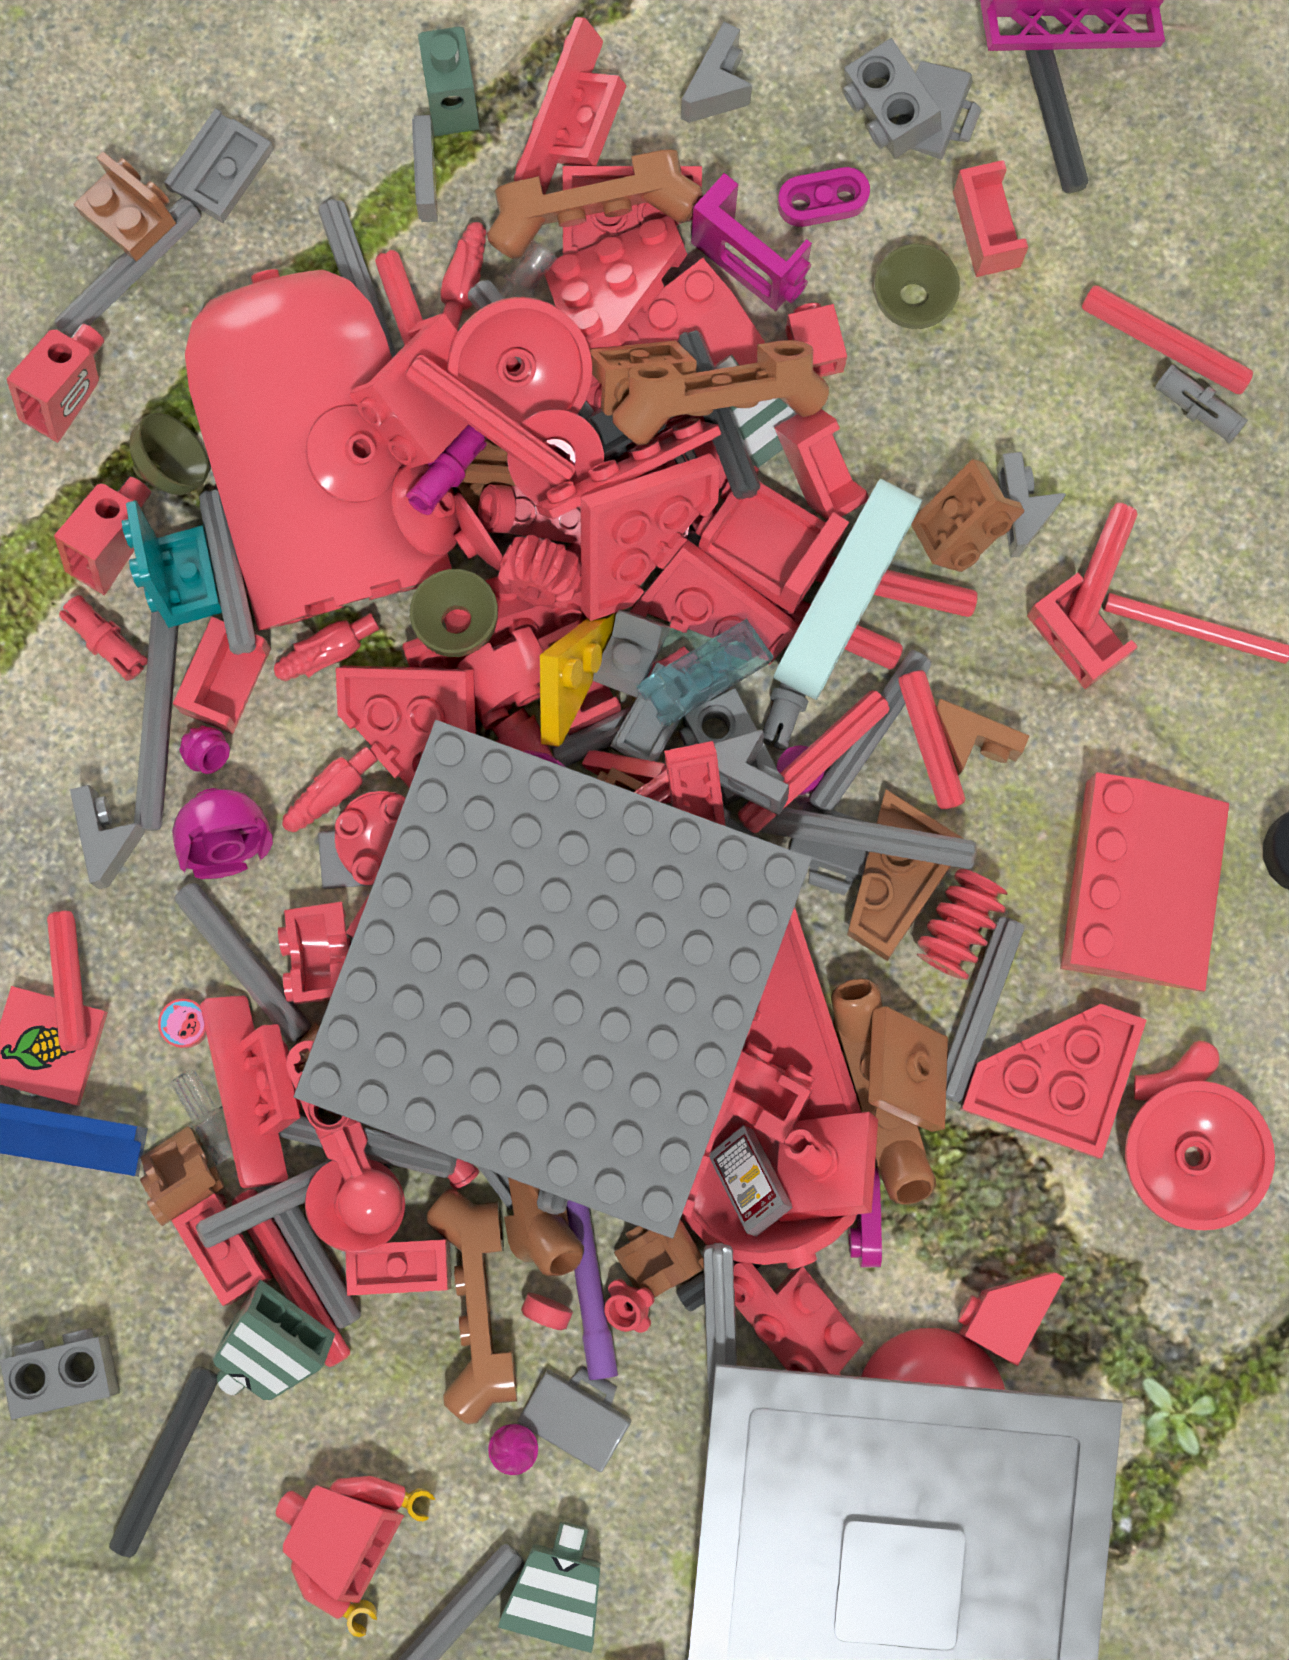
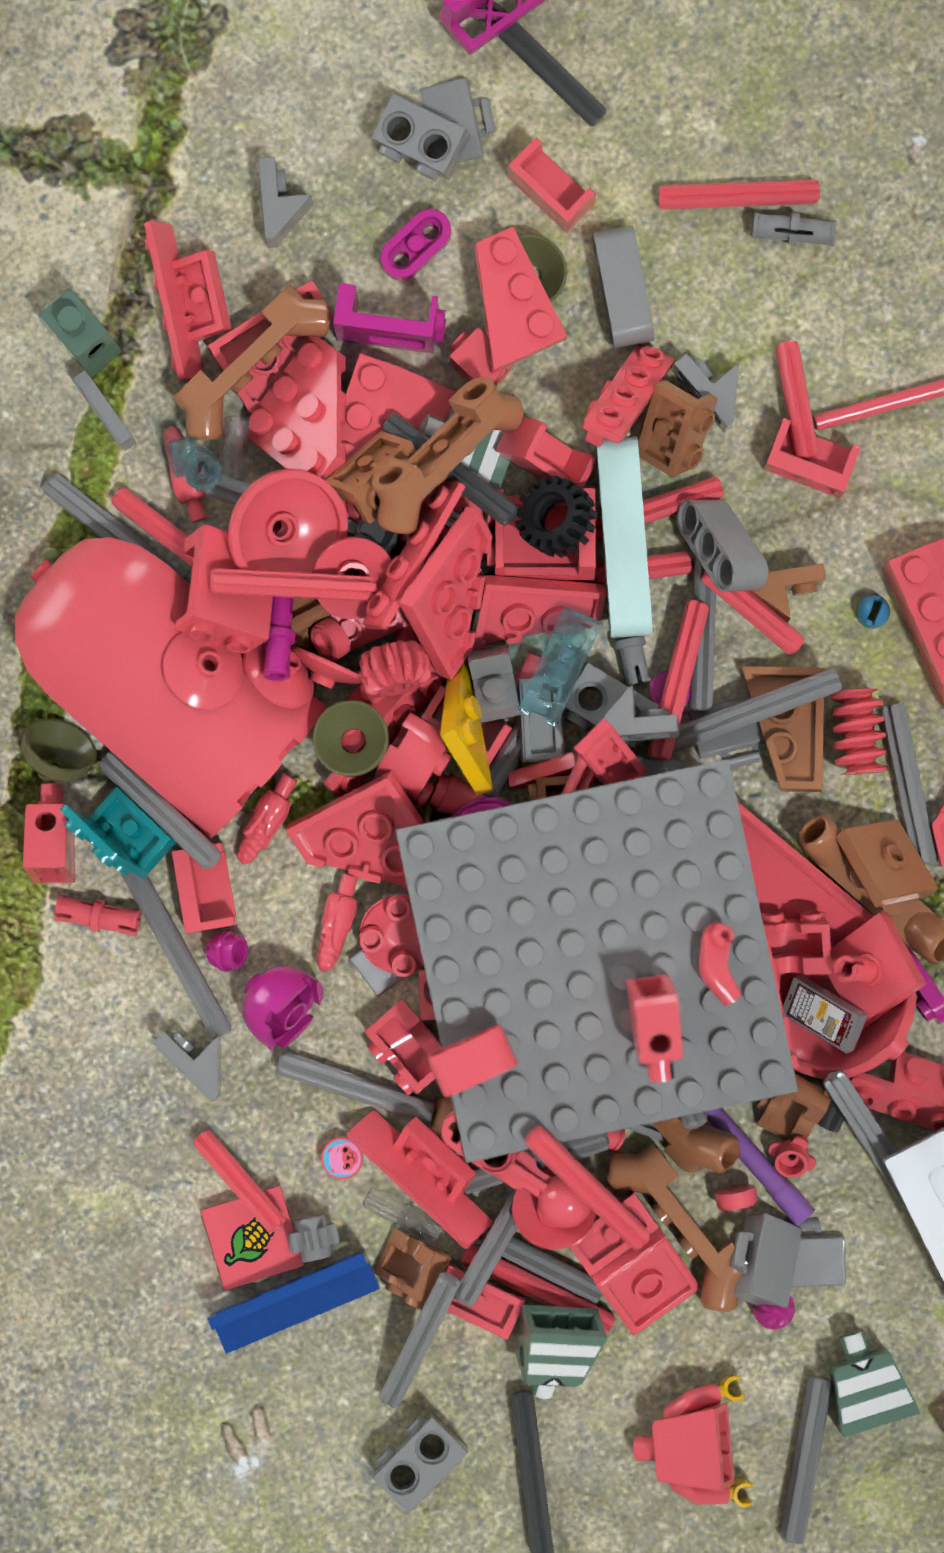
camera: 25 degrees left, 5 degrees up
(101, 1082) = (313, 1238): none -> light grey gear
(137, 1249) = (419, 1339): none -> light grey axle
(362, 994) = (472, 1060): none -> coral beam
(398, 1200) = (587, 1187): none -> coral axle
(400, 1338) = (646, 1283): none -> coral tile
(466, 256) = (184, 462): none -> clear light blue connector
(544, 1392) = (771, 1256): none -> light grey piece
(573, 1060) = (655, 1012): none -> coral torso
(668, 1051) = (714, 962): none -> coral arm
(801, 542) = (537, 508): none -> black tyre
(884, 302) = (515, 303): none -> coral wing
(933, 452) = (626, 395): none -> coral bracket
(940, 656) = (722, 545): none -> light grey beam
(999, 356) = (623, 286): none -> light grey beam
(1055, 828) = (865, 607): none -> dark azure hinge

